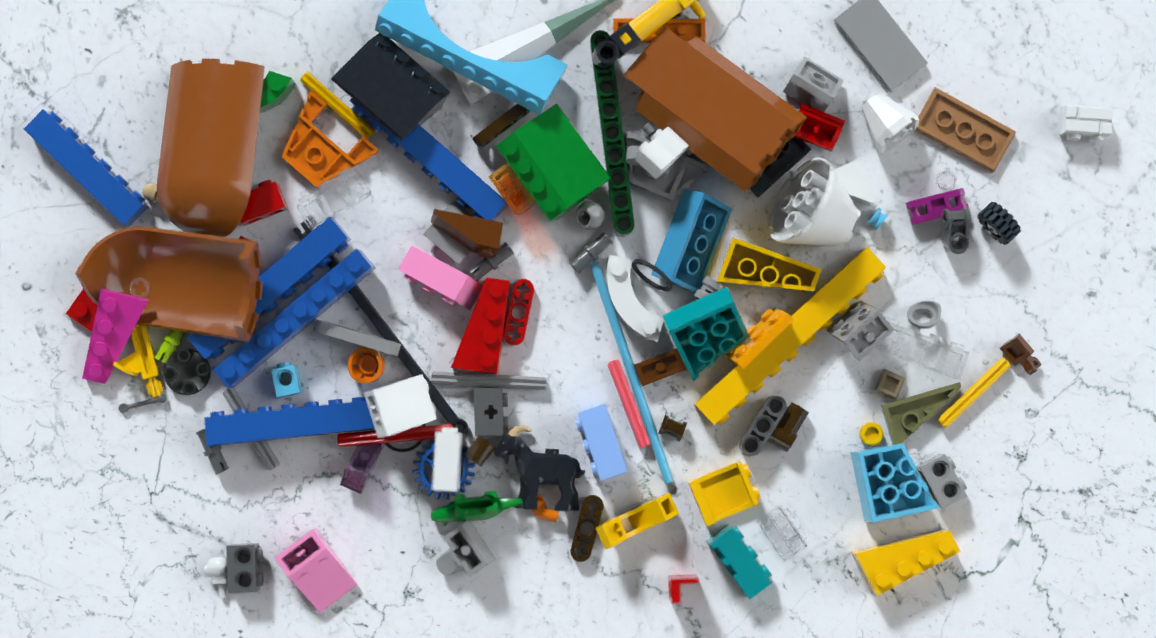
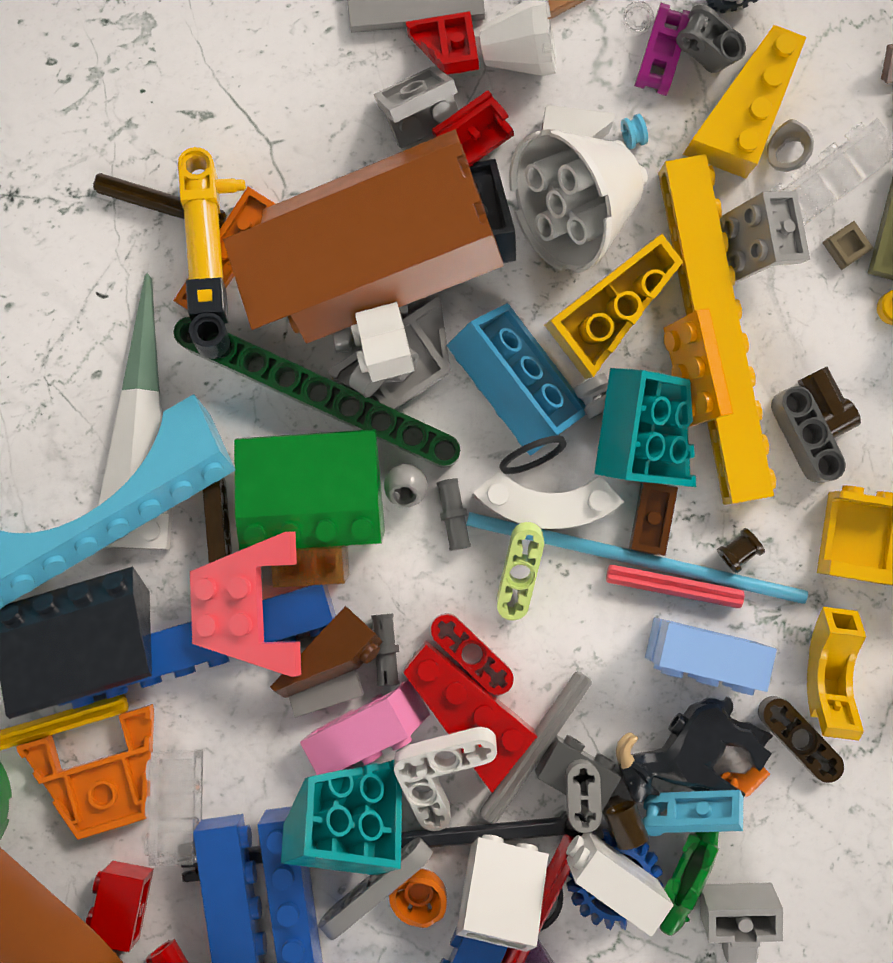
camera: 60 degrees left, 0 degrees up
(388, 296) = (346, 821): none -> teal wedge
(442, 323) = (425, 773): none -> white beam
(465, 158) = (230, 606): none -> coral wing
(484, 423) = (592, 796): none -> light grey beam
(509, 485) = (694, 812): none -> medium azure plate
(572, 307) = (515, 557): none -> yellowish green beam
(860, 80) = (447, 41): none -> red wing
(927, 275) = (745, 114): none -> yellow wedge

